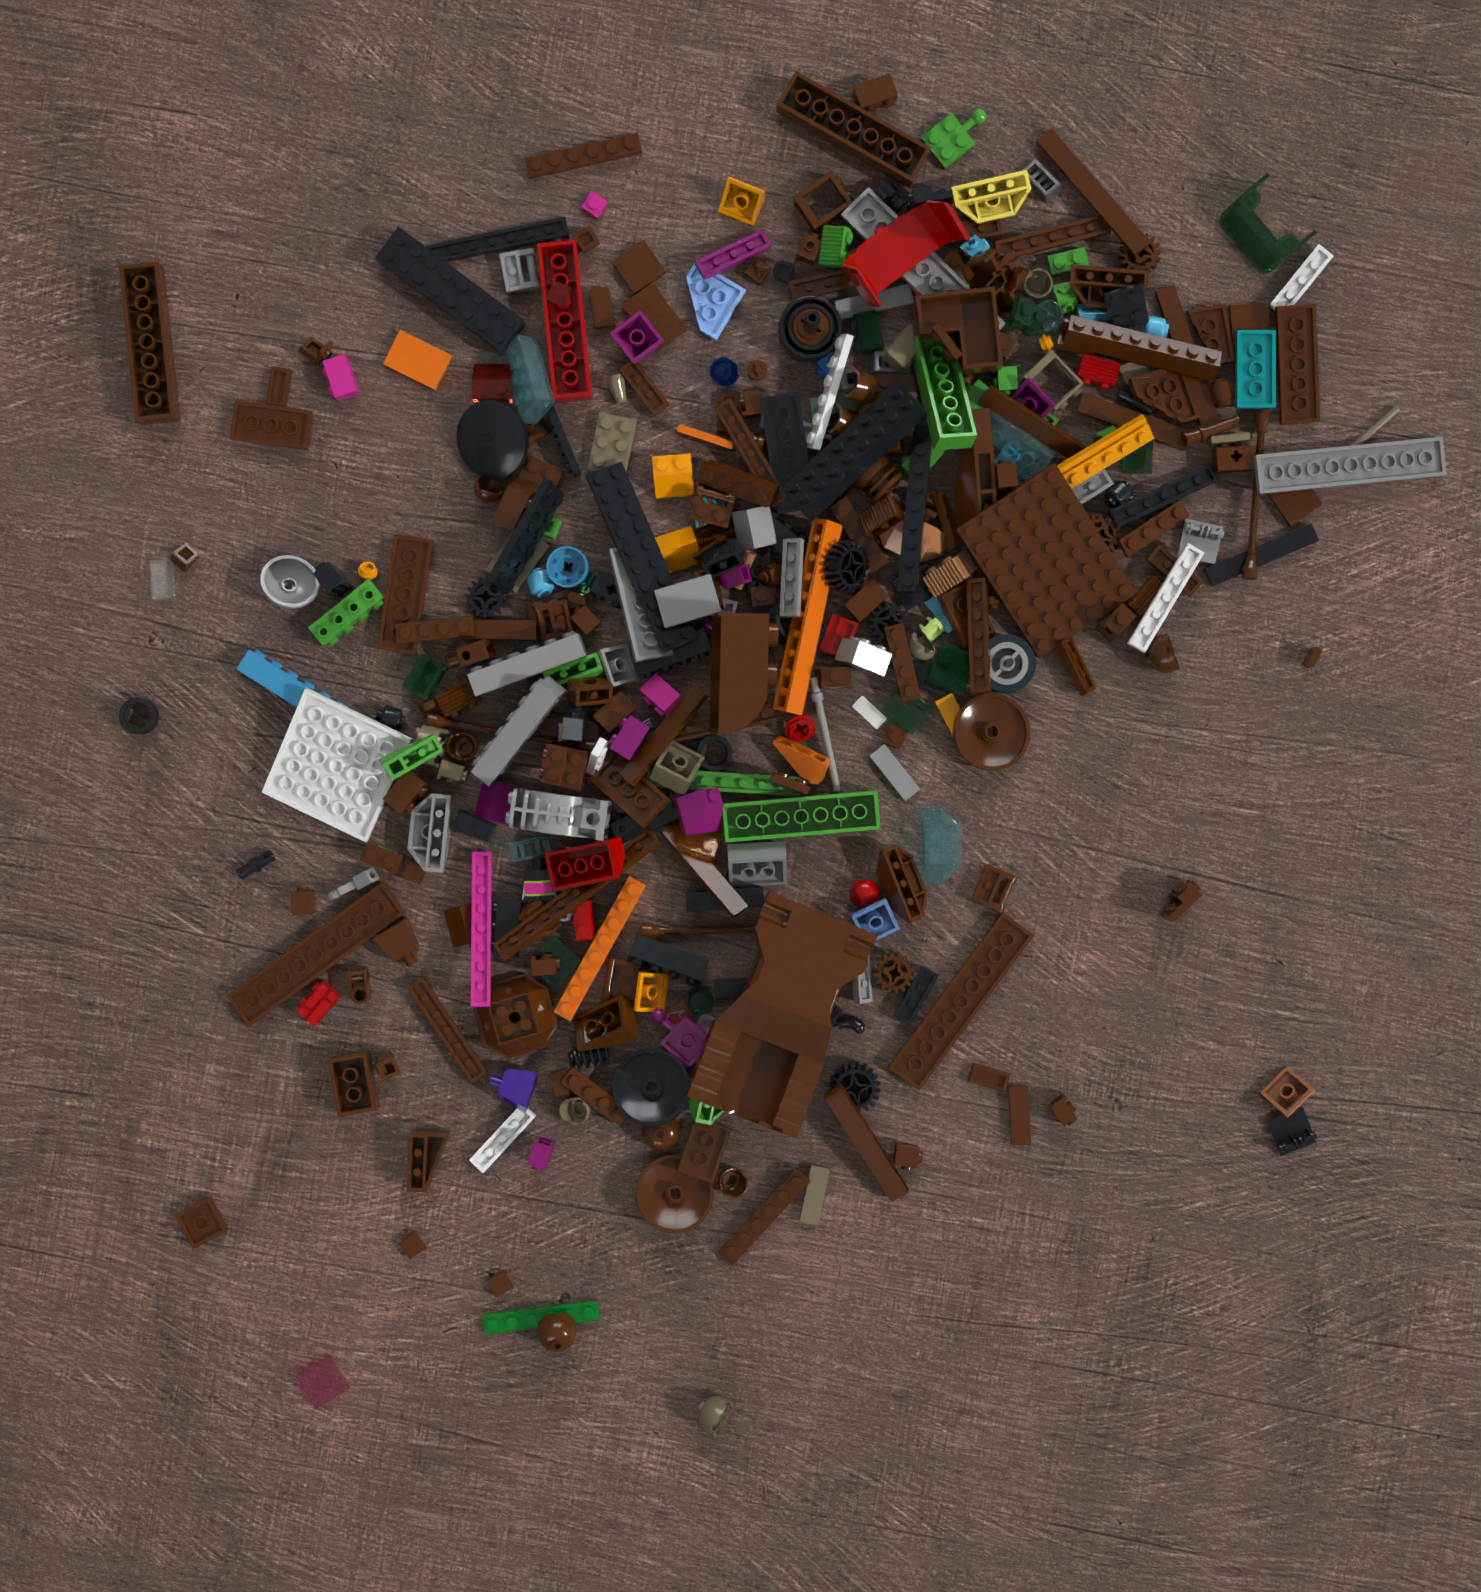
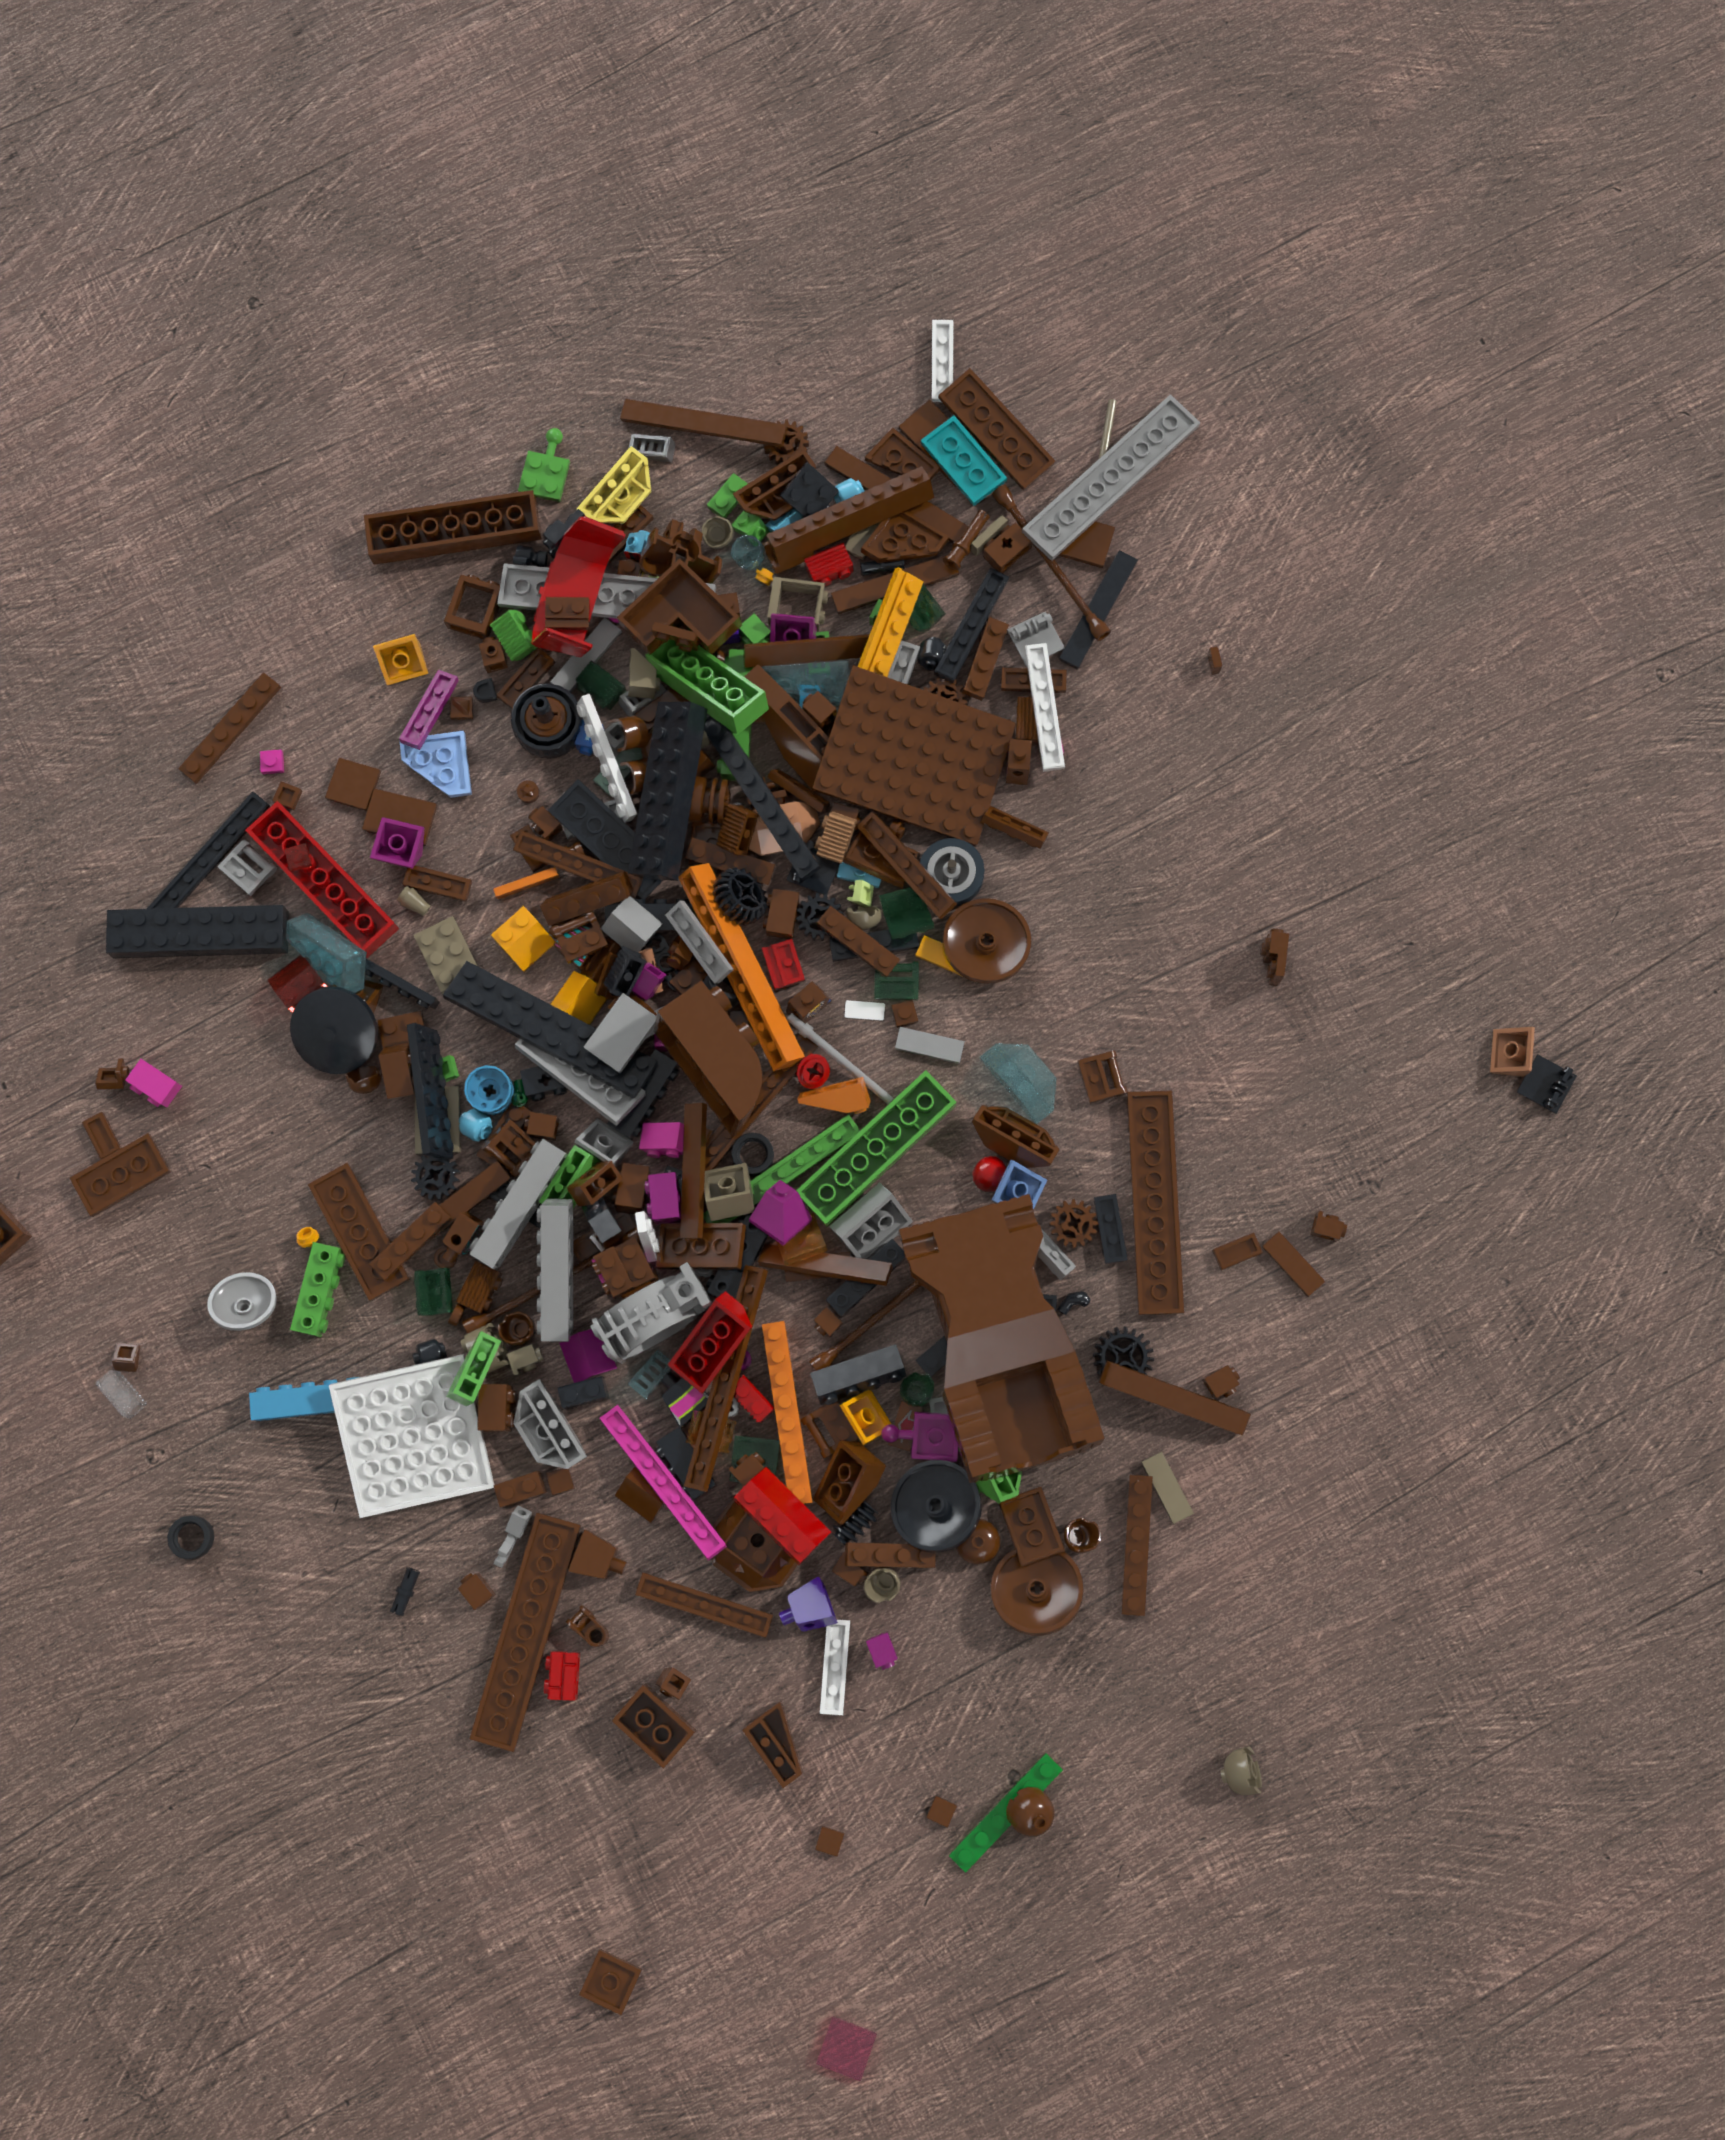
camera: 35 degrees left, 10 degrees down
(332, 579) = (280, 1266): black brick -> none
(417, 360) = (212, 1015): orange tile -> none
(543, 1016) = (782, 1515): none -> red slope
(602, 307) = (346, 843): reddish brown tile -> none
(674, 908) = (827, 1323): none -> reddish brown plate
(723, 372) = (498, 815): clear blue hair -> none
(797, 785) = (834, 1126): reddish brown plate -> none
(863, 655) = (818, 961): brick -> none
(875, 93) = (449, 483): reddish brown brick -> none
(884, 262) = (567, 613): none -> reddish brown plate
(1025, 317) = (729, 567): clear green bracket -> none
(1054, 236) = (700, 483): reddish brown plate -> none
(1162, 655) = (1082, 758): reddish brown cylinder -> none
(1221, 393) = (951, 503): reddish brown brick -> none
(1252, 234) = (873, 355): clear green windscreen -> none

